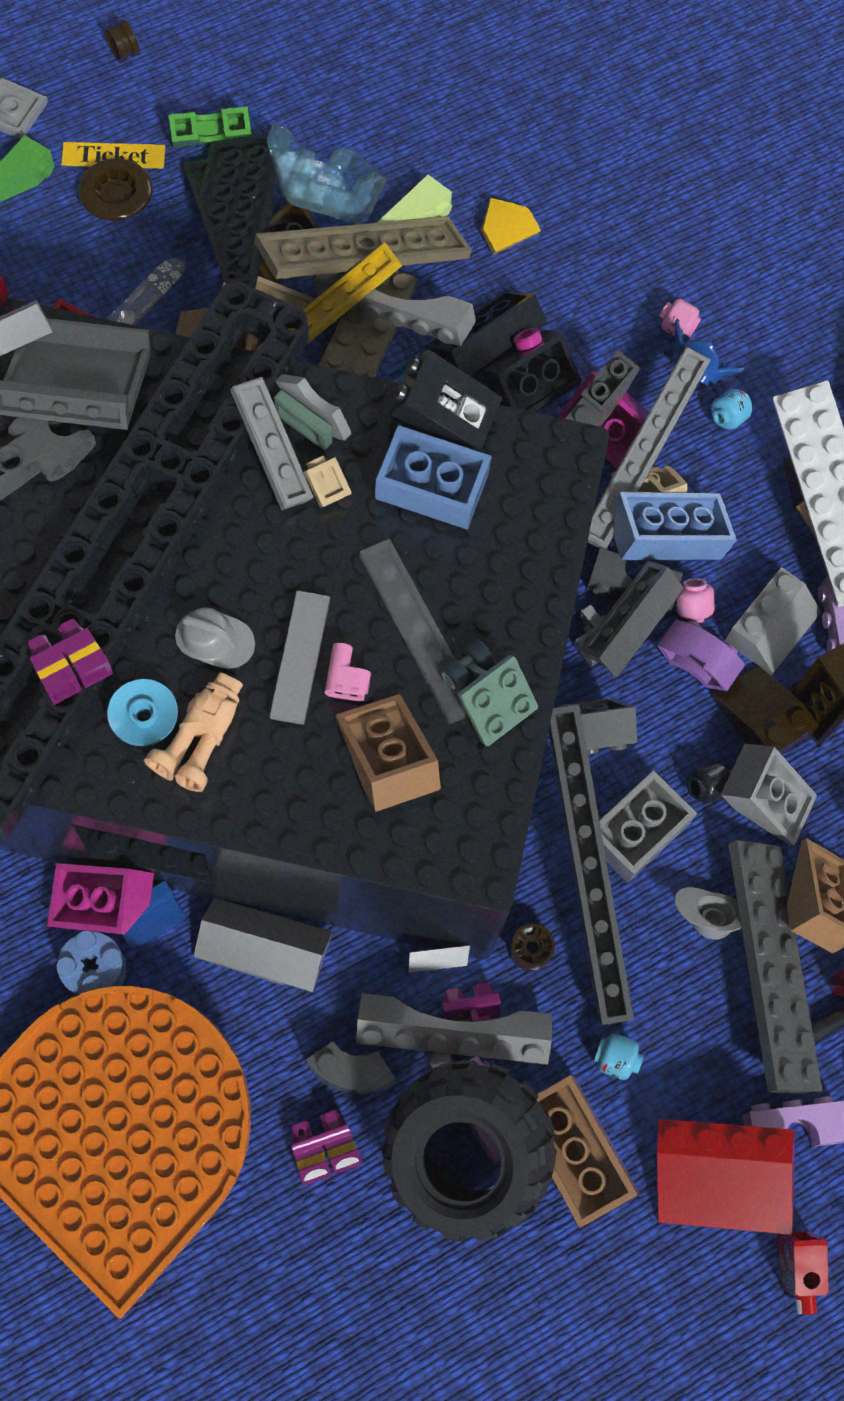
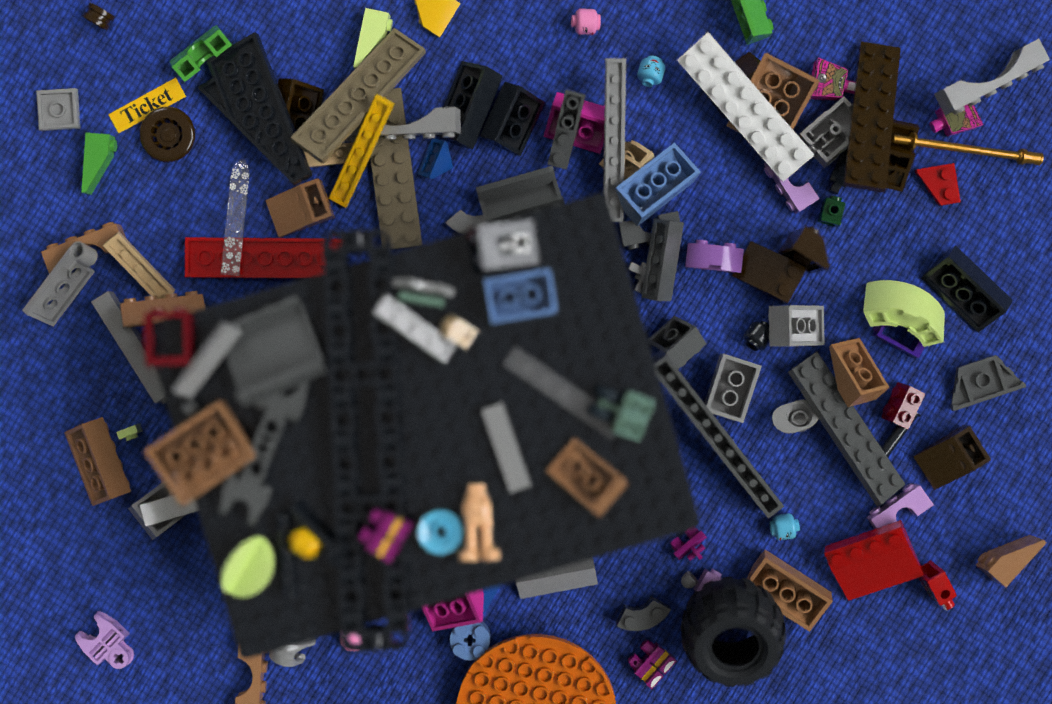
camera: 20 degrees left, 20 degrees up
(215, 638) = (451, 462): light grey piece -> none
(341, 188) = (303, 56): clear light blue windscreen -> none
(345, 678) = (538, 447): bright pink piece -> none
(516, 1037) = (652, 579): light grey arch -> none
(527, 339) = (498, 99): dark pink tile -> none
(528, 935) = (708, 498): dark brown wheel -> none
(695, 600) = (694, 223): bright pink head -> none
(713, 371) = (614, 45): blue brick -> none
(774, 621) = (747, 207): light grey slope -> none

